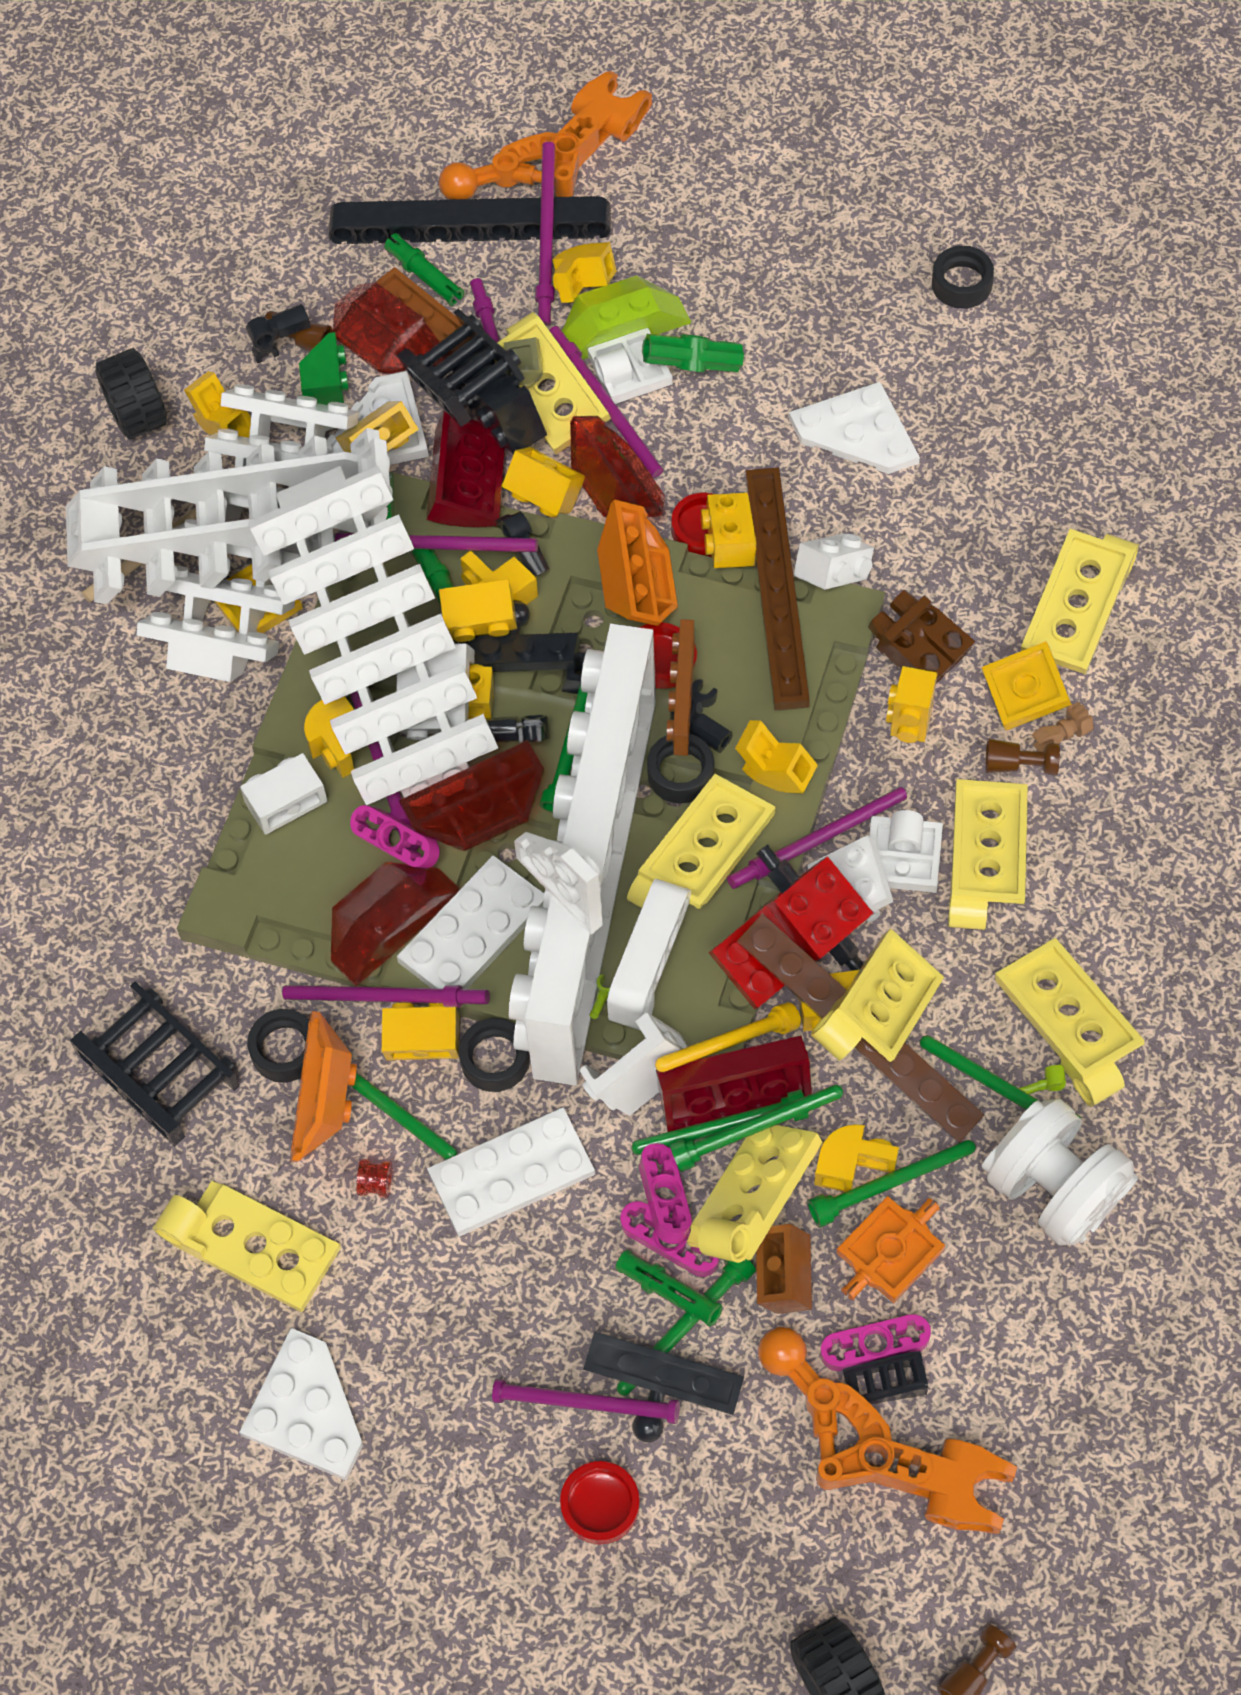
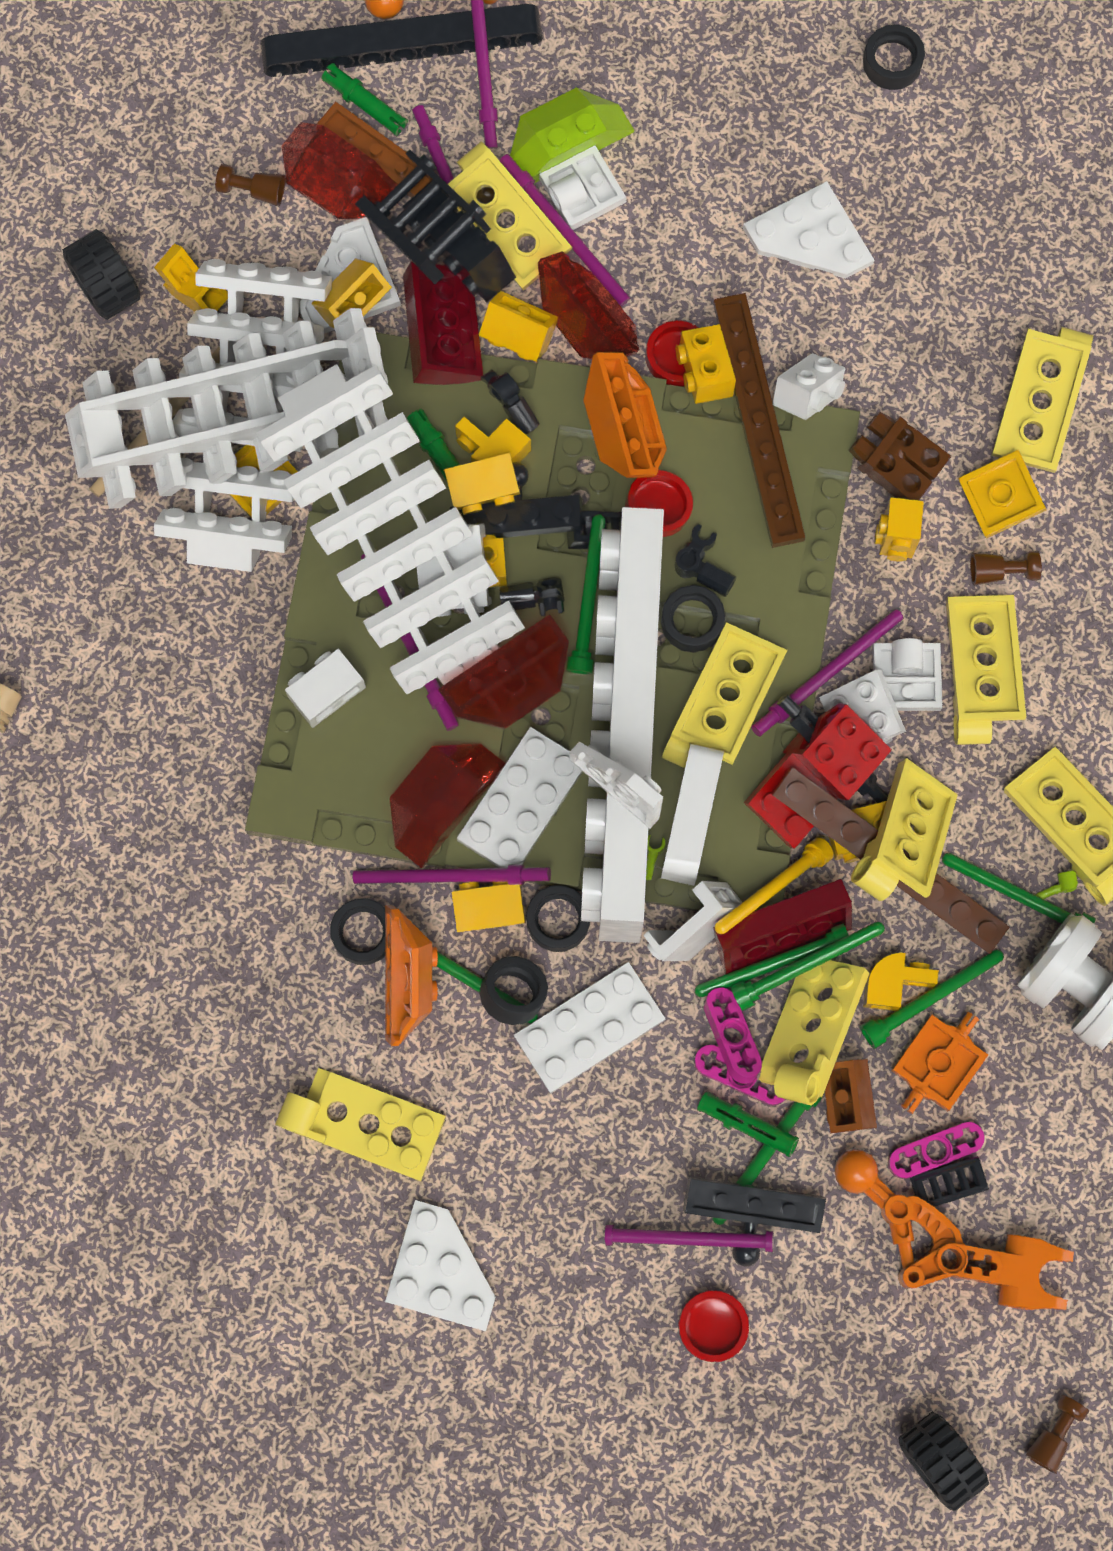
camera: 10 degrees left, 15 degrees up
(144, 1097) = (244, 994): black fence -> none
(284, 323) = (220, 191): black bar -> none
(322, 373) = (282, 227): green slope -> none
(322, 738) = (350, 618): yellow brick -> none
(374, 1178) = (467, 1050): clear red wheel -> none
(380, 837) = (422, 721): dark pink beam -> none
(443, 1100) = (527, 972): none -> black tyre
(468, 543) = (457, 410): magenta bar -> none
(529, 353) = (486, 195): olive plate -> none
(582, 267) = (522, 84): yellow brick -> none
(681, 674) = (687, 554): dark orange plate -> none
(692, 352) = (643, 171): green piece -> none
(772, 763) = (781, 605): yellow brick -> none
(1077, 722) = (1053, 525): medium nougat piece -> none

